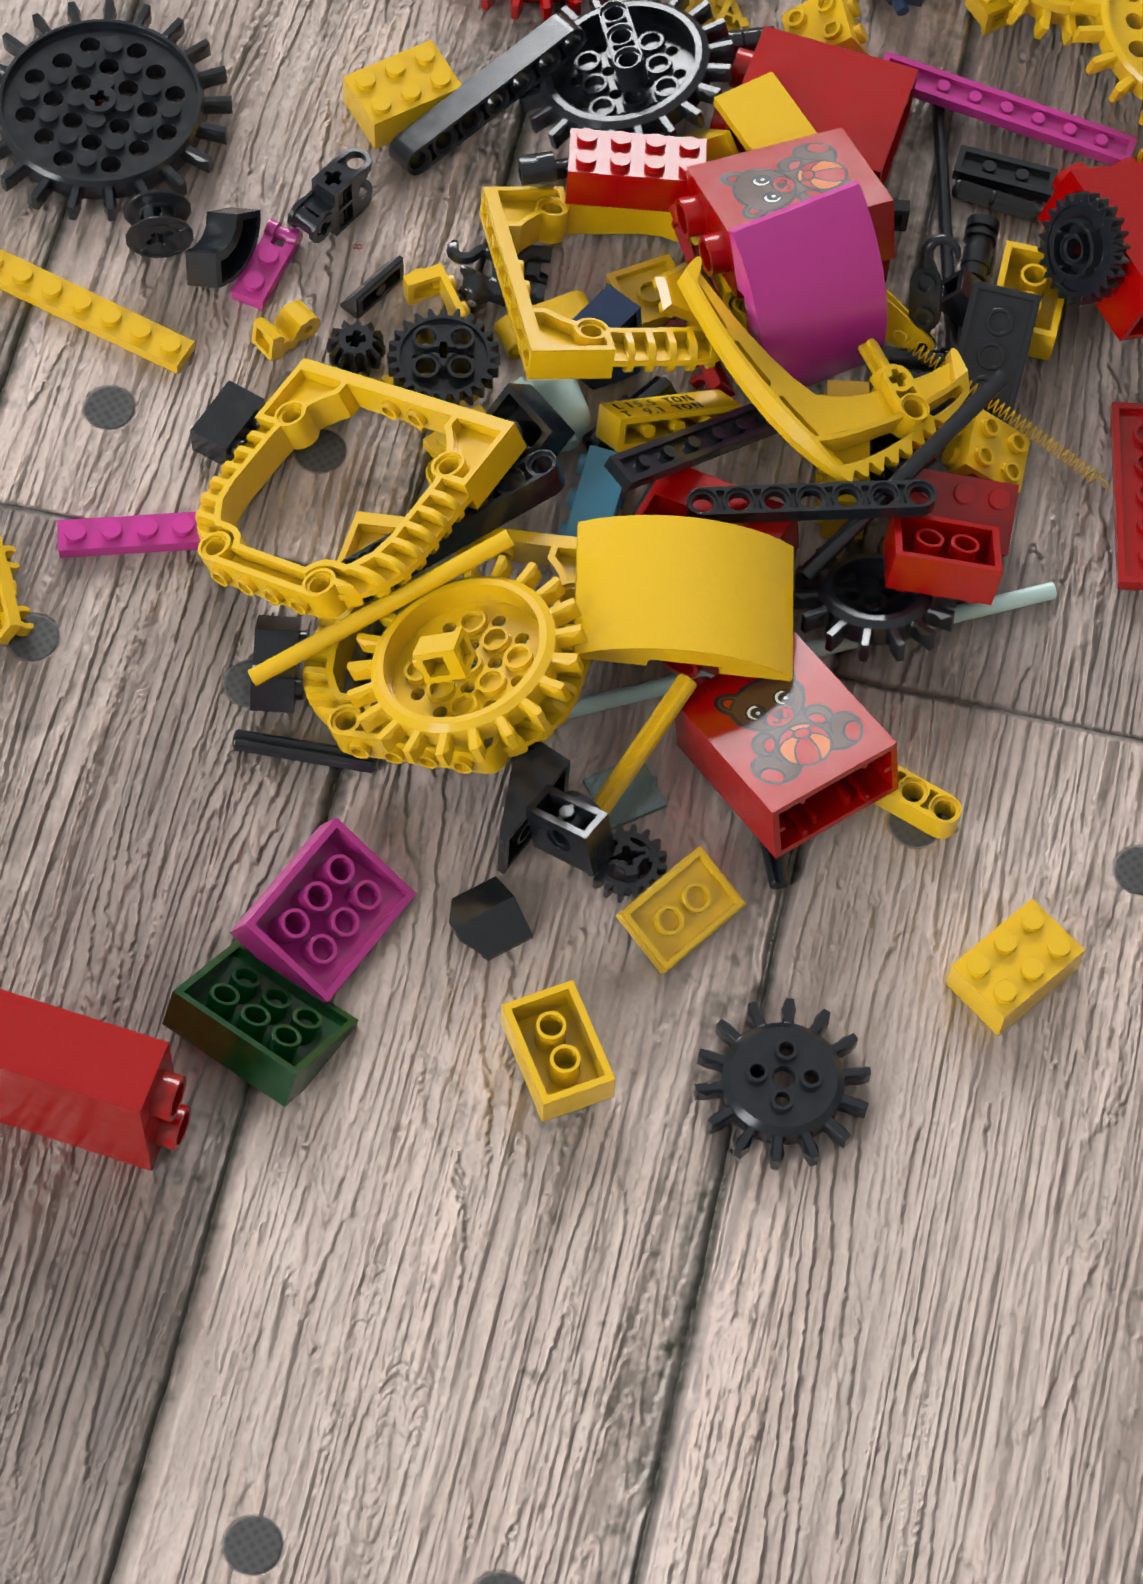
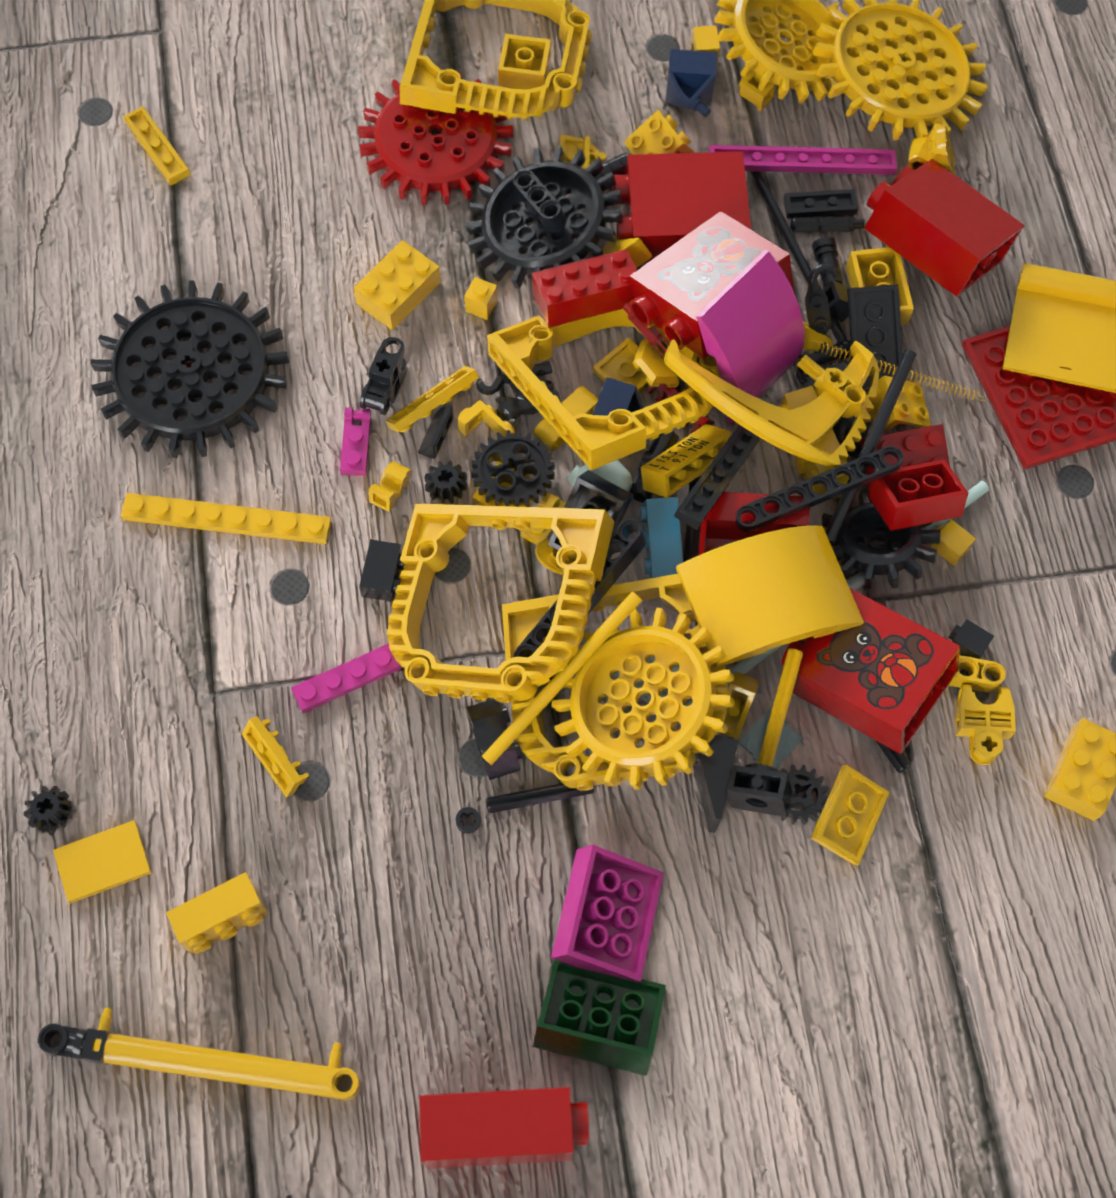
camera: 20 degrees left, 5 degrees up
(145, 218) = (271, 445): black piece -> none
(208, 738) = (468, 811): none -> black bush
(224, 247) = (322, 441): black brick -> none
(399, 243) = (439, 394): none -> yellow plate
(444, 656) = (630, 704): yellow brick -> none
(487, 94) = (457, 266): black beam -> none
(489, 919) = (721, 871): black slope -> none
(501, 144) = (481, 298): none -> yellow brick
(541, 169) = (520, 308): black beam -> none
(557, 1050) = (817, 956): yellow brick -> none
(599, 731) = (743, 692): none -> yellow slope
(751, 1100) = (965, 939): black gear -> none
(762, 113) = (658, 220): yellow tile -> none
(908, 867) = (984, 723): none -> yellow piece
(938, 762) = (971, 639): none -> black brick
(974, 640) = (953, 542): none -> yellow brick
(1084, 248) = (929, 231): black gear -> none

